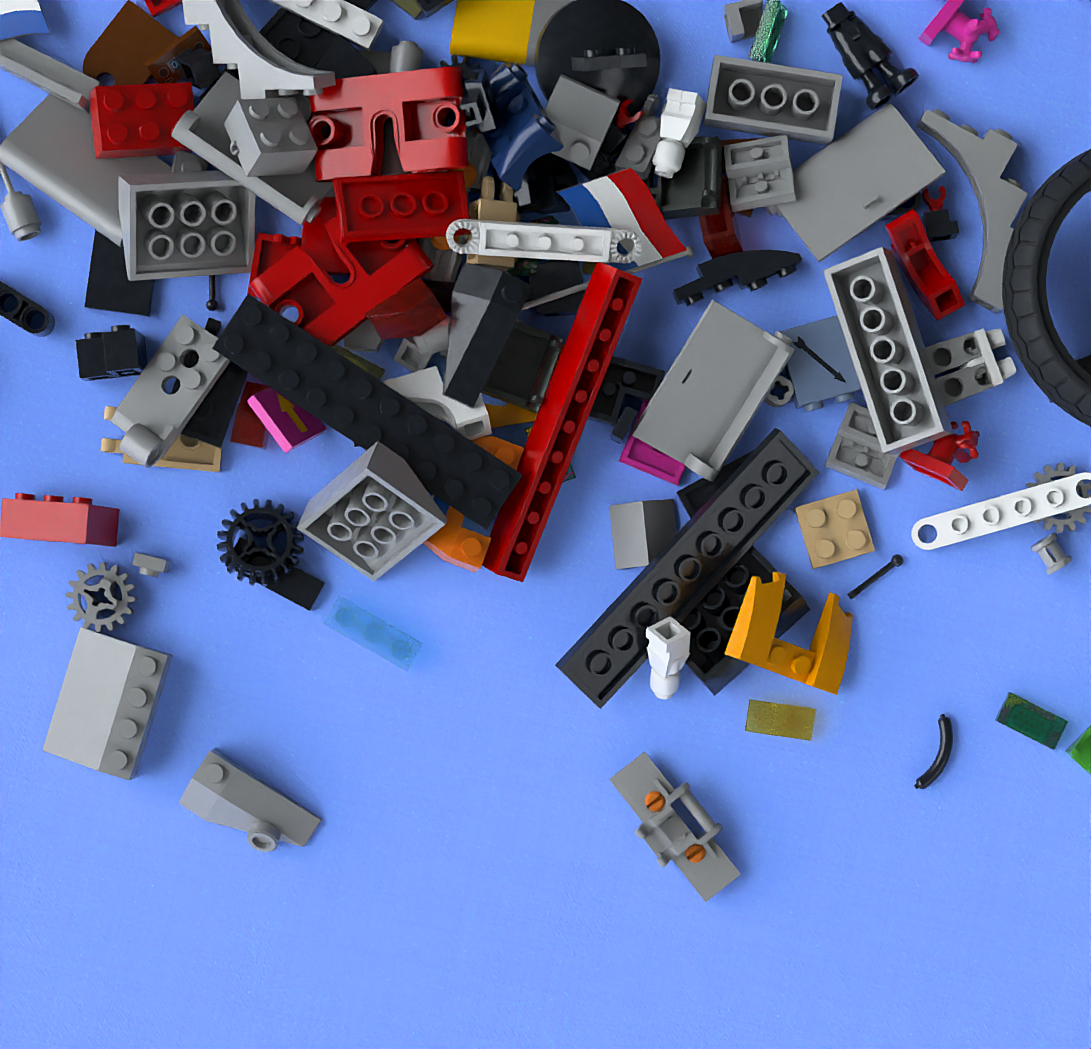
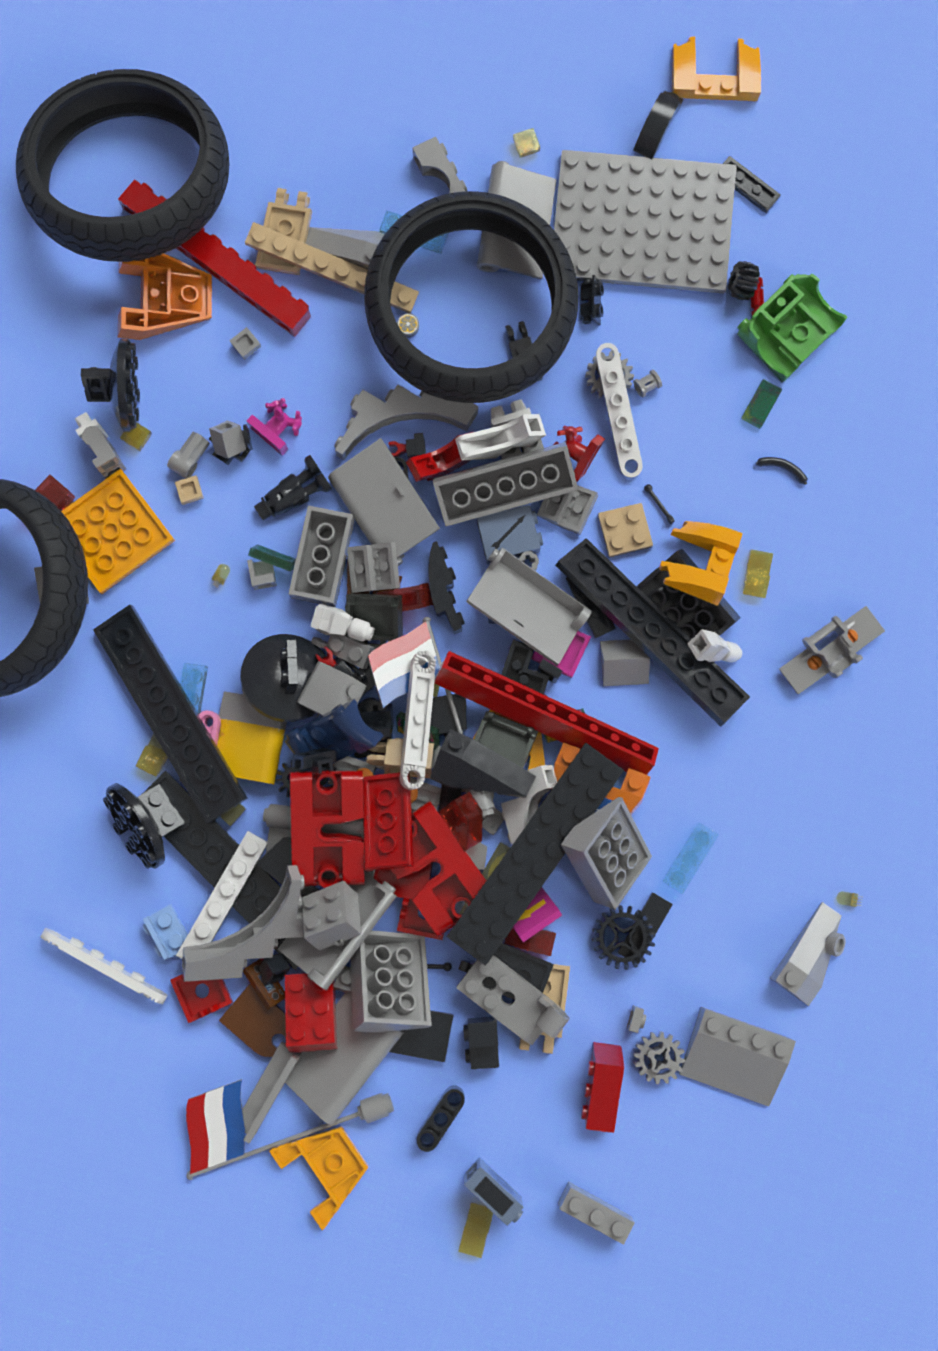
camera: 90 degrees left, 5 degrees down
(326, 856) = (848, 899): none -> clear yellow piece
(949, 336) = (497, 440): none -> white arch

